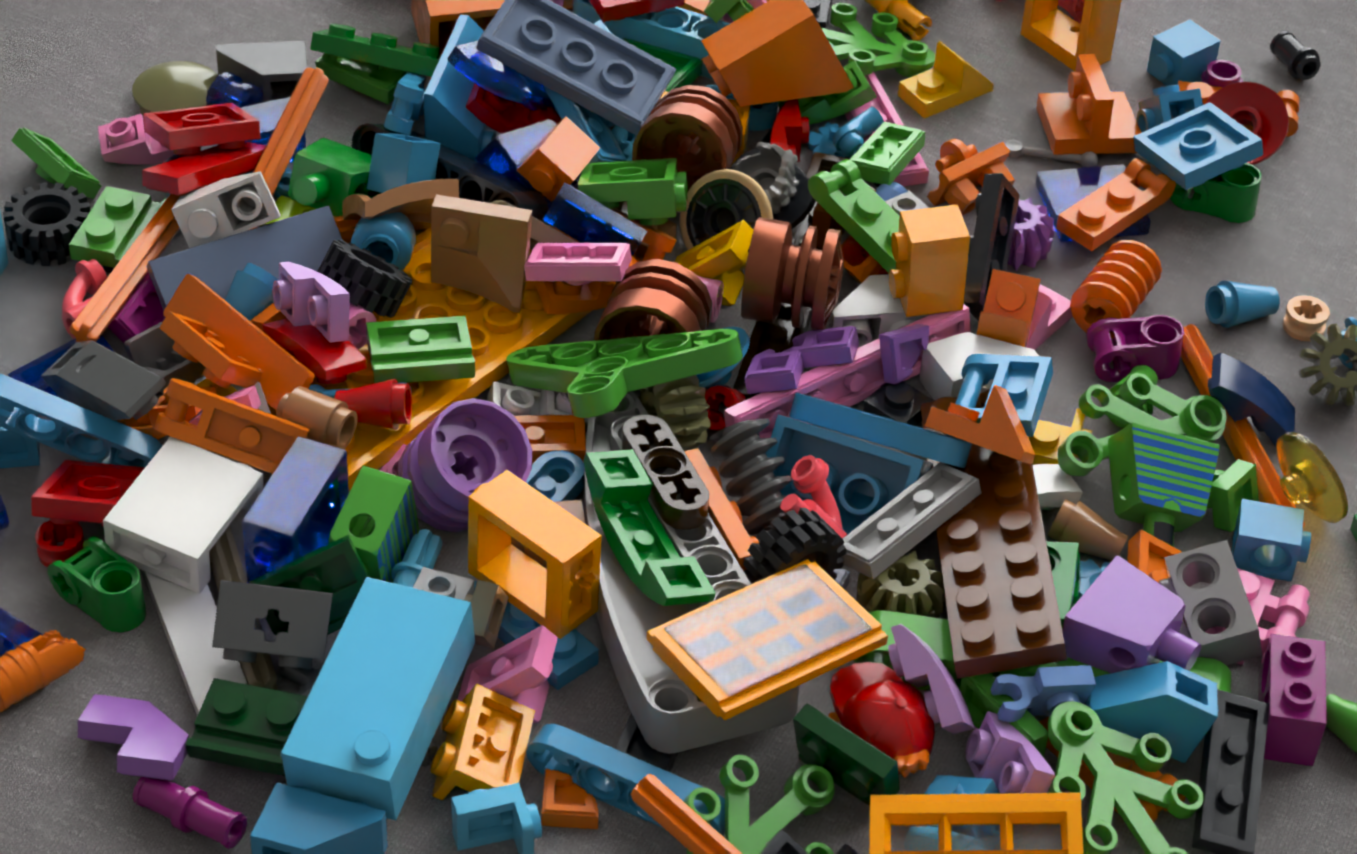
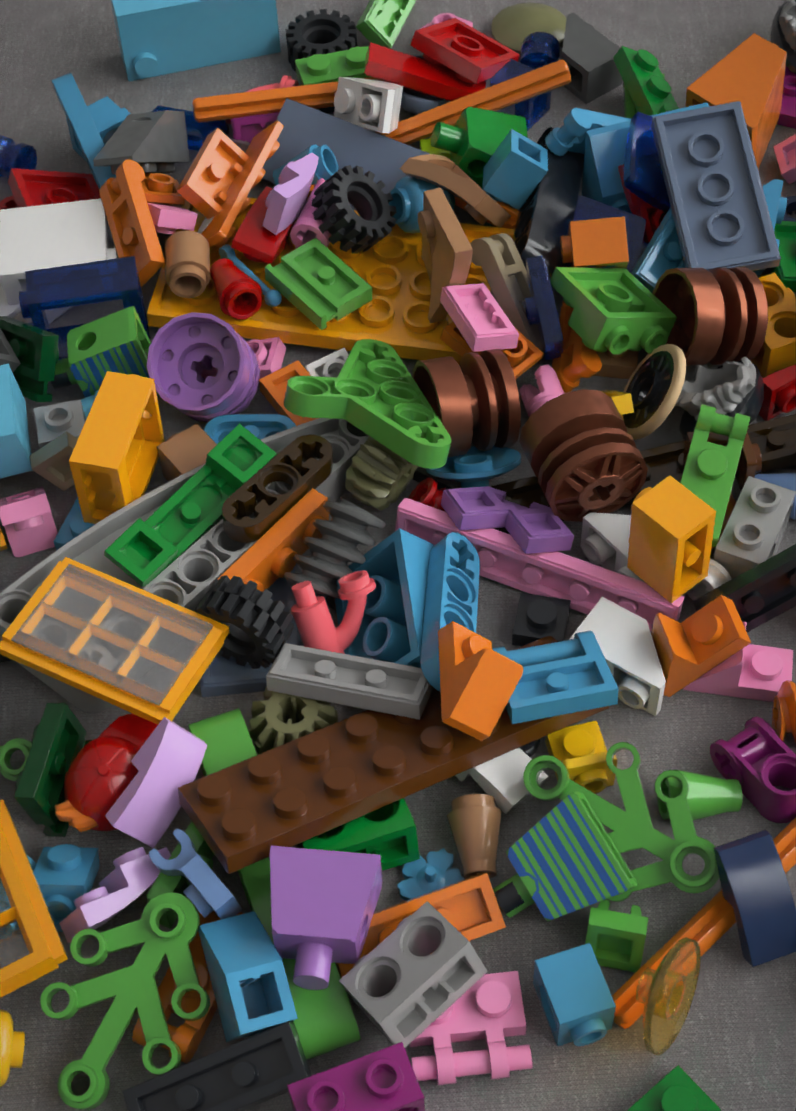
camera: 65 degrees right, 10 degrees up
(901, 351) = (579, 583): medium lavender tile -> none

